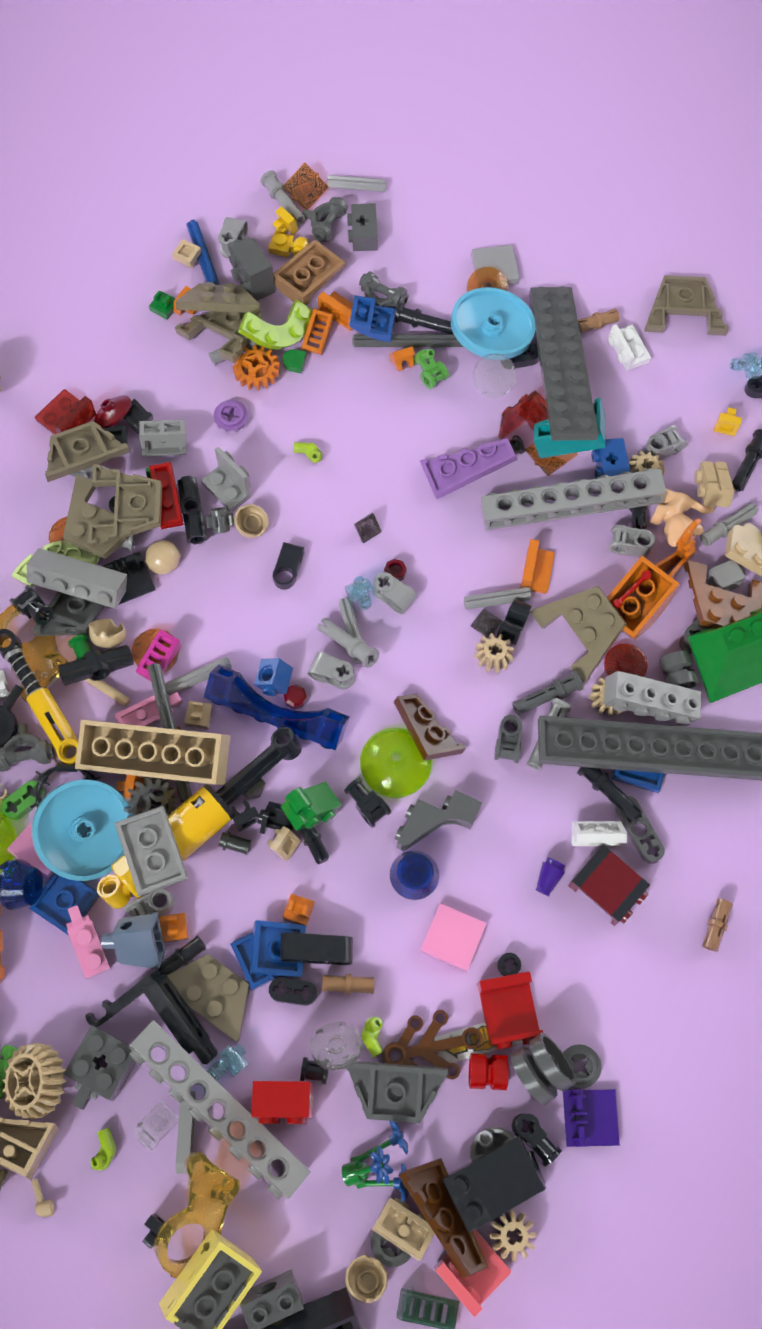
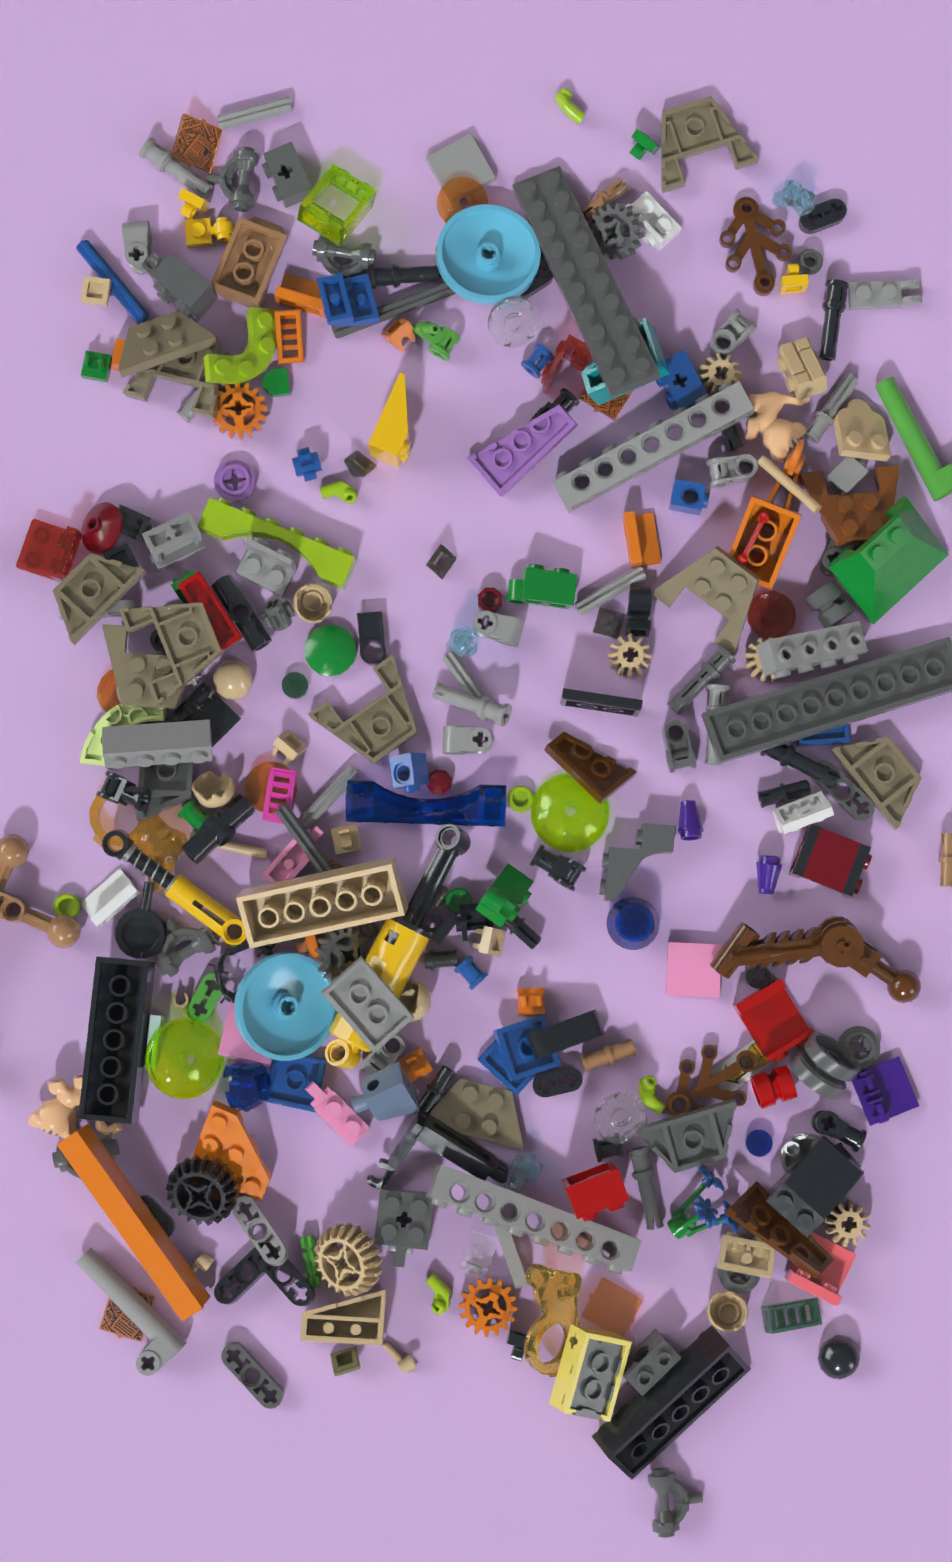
camera: 20 degrees left, 15 degrees up
(151, 1191) = (493, 1295): none -> orange gear
(184, 622) = (289, 745): none -> tan tile
(198, 869) = (416, 999): none -> tan hair
(210, 580) = (295, 685): none -> clear green tile
(250, 563) = (330, 650): none -> green dish
(256, 863) = (471, 972): none -> blue bush
(259, 1230) = (611, 1307): none -> clear orange piece
(266, 633) = (378, 726): none -> dark tan wing
(272, 795) = (457, 897): none -> green tile
(278, 498) = (229, 523): none -> lime arch
(291, 421) = (306, 464): none -> blue gear
(332, 437) = (359, 464): none -> clear smoke slope
(338, 1108) = (644, 1175): none -> dark grey pin
(357, 735) = (520, 799): none -> lime tile
(366, 417) = (391, 435): none -> yellow slope
(385, 269) = (334, 227): none -> clear neon green window
(442, 574) = (543, 587): none -> green hinge
(456, 677) = (601, 702): none -> black tile
(456, 1122) = (758, 1142): none -> clear blue tile
(496, 411) = (529, 364): none -> blue bush
(496, 806) = (690, 823): none -> dark purple cone
(587, 812) = (784, 793): none -> black axle
(589, 540) = (678, 503): none -> blue brick
(589, 954) = (833, 940): none -> reddish brown piece
(592, 251) = (569, 109): none -> lime arm
(600, 336) = (617, 230): none -> dark grey gear
(641, 292) = (644, 144): none -> green tile
(676, 561) = (789, 484): none -> tan bar
(680, 829) = (882, 775): none -> dark tan wing
(705, 386) = (754, 241): none -> reddish brown plant
(749, 410) = (811, 254): none -> dark grey plate

